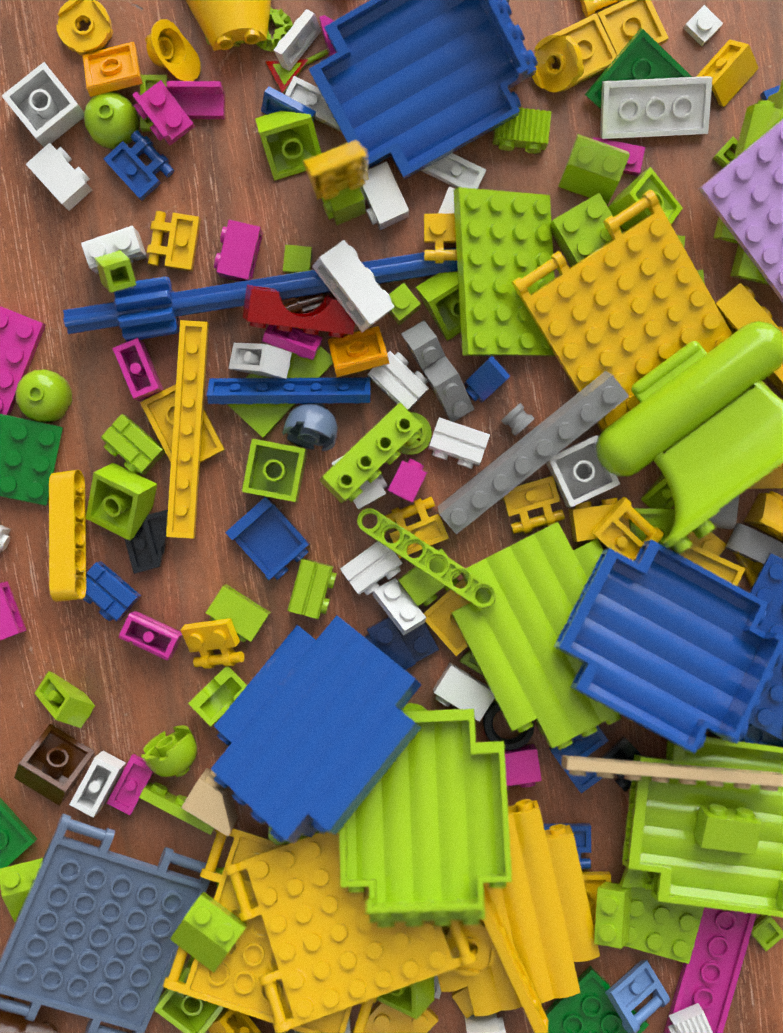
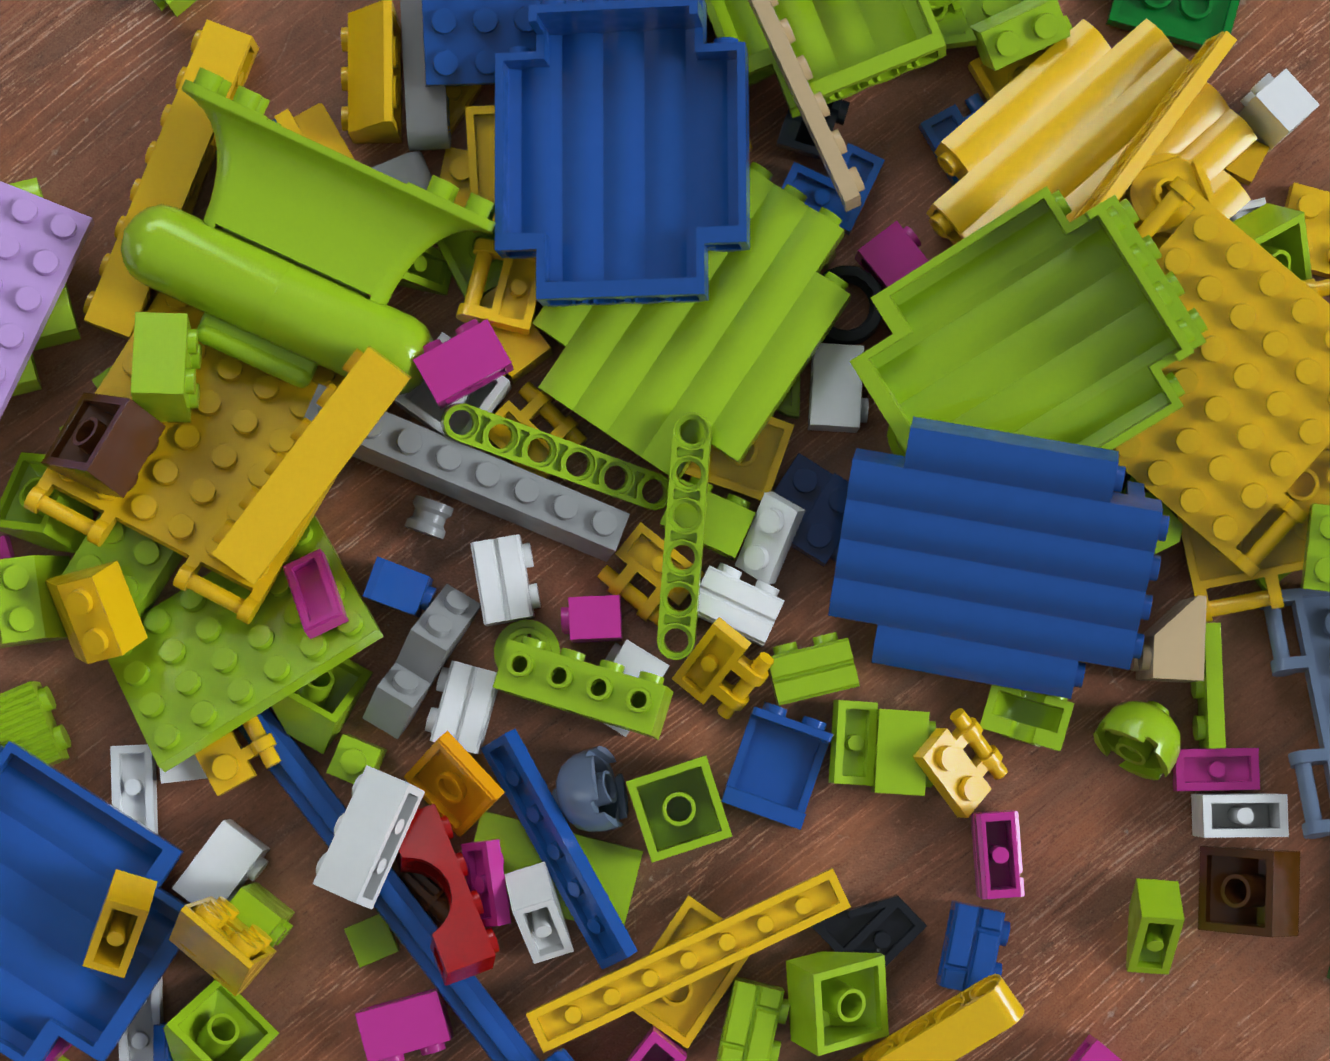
camera: 120 degrees left, 5 degrees down
(258, 589) = (853, 742): none -> lime plate
(348, 538) = (713, 659): none -> yellow plate
(381, 119) = (120, 923): none -> yellow brick
(508, 329) = (315, 593): none -> dark pink tile
(509, 508) = (558, 454): none -> lime beam
(566, 201) = (97, 612): none -> yellow slope
(583, 365) = (310, 465): none -> yellow brick
(595, 486) = (463, 362): none -> dark pink brick
(661, 254) = (104, 443): none -> reddish brown slope
(687, 312) = (165, 365): none -> lime brick

